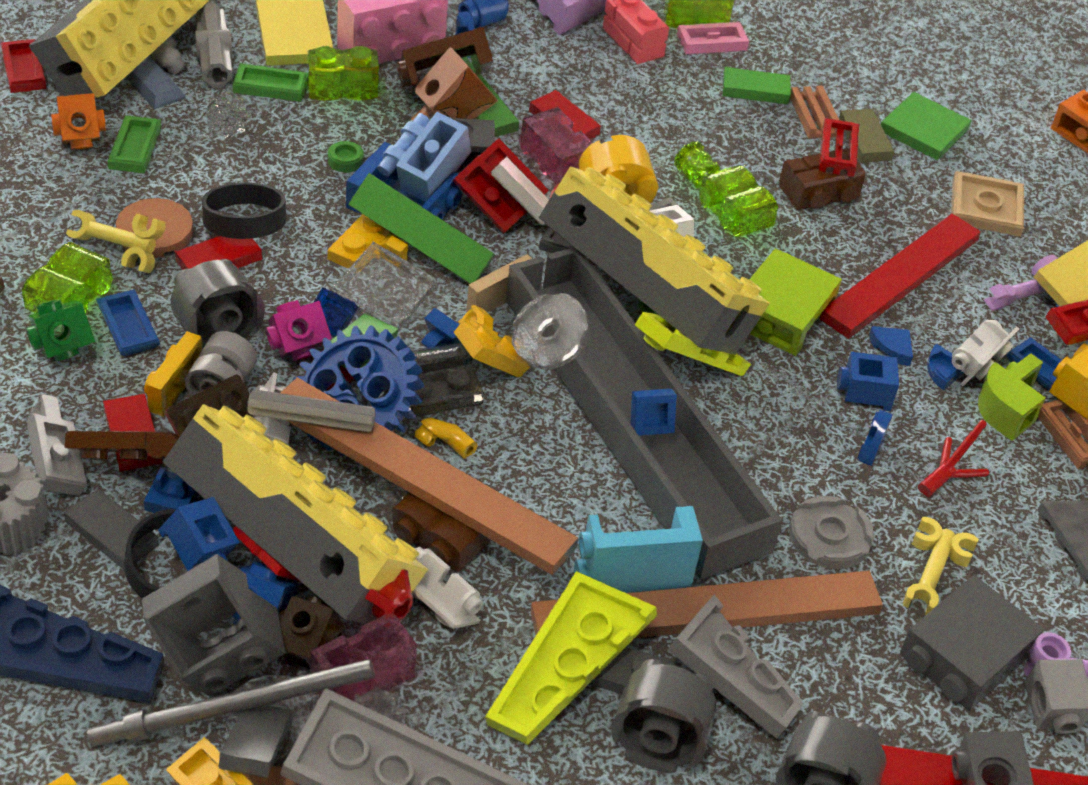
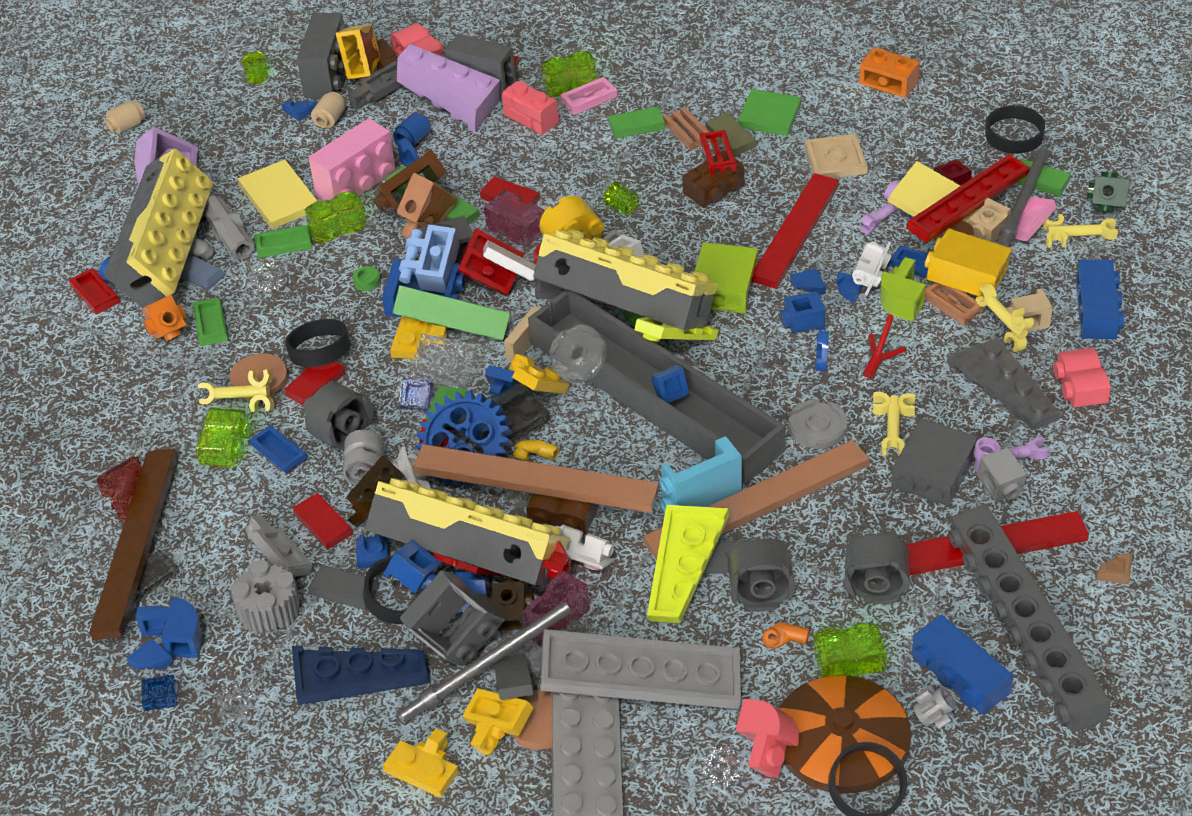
camera: 10 degrees left, 0 degrees up
(74, 333) = (238, 469): green brick -> none
(131, 444) = (334, 527): reddish brown hinge -> none
(169, 379) = (331, 464): yellow plate -> none
(307, 319) = (401, 413): dark pink brick -> none
(311, 410) = (445, 462): light grey axle -> none
(721, 654) = (799, 535): light grey wing -> none
(738, 200) = (661, 215): clear neon green brick -> none

